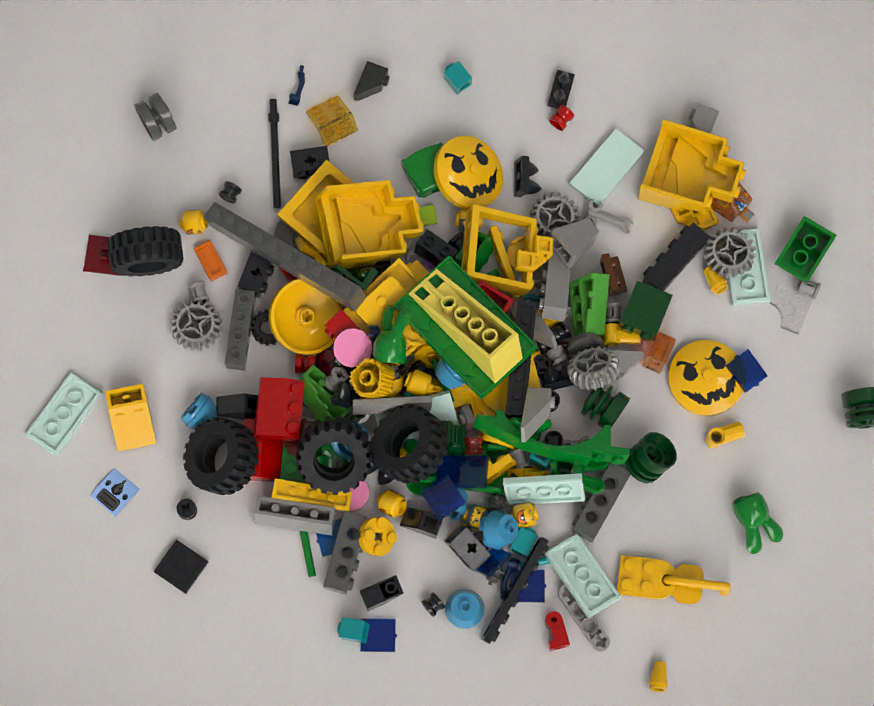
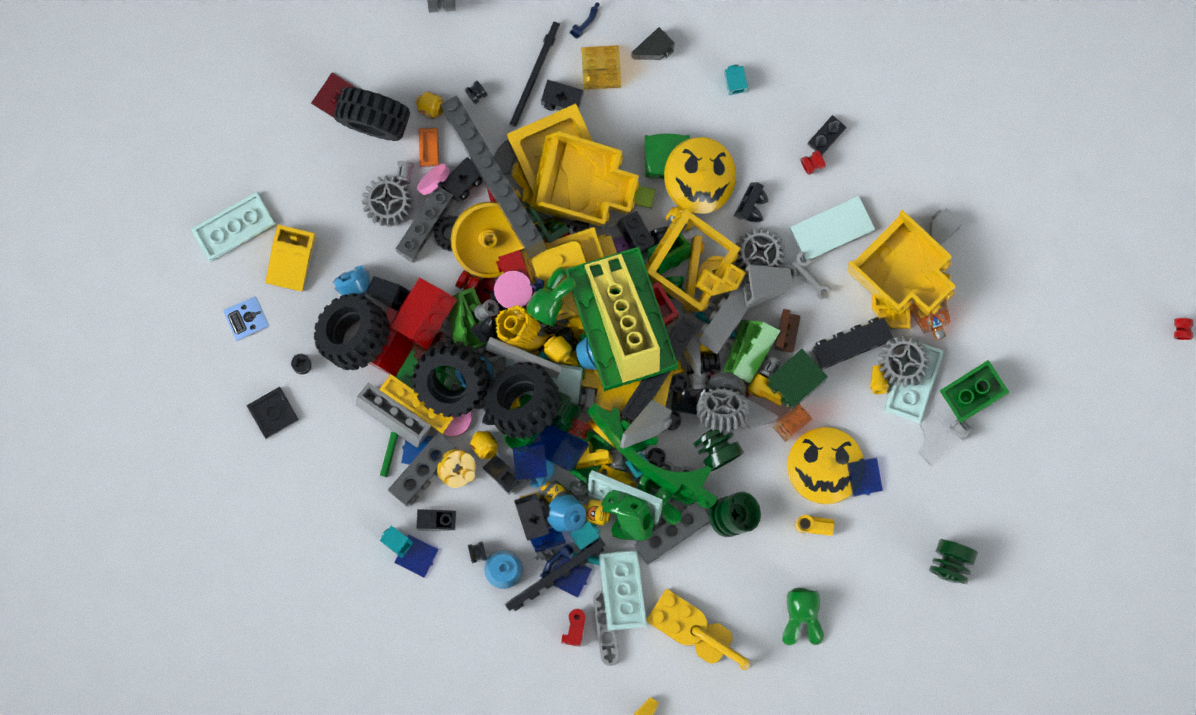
camera: 30 degrees right, 5 degrees up
(227, 287) = (432, 178): none -> bright pink tile
(559, 501) = (632, 516): none -> green piece

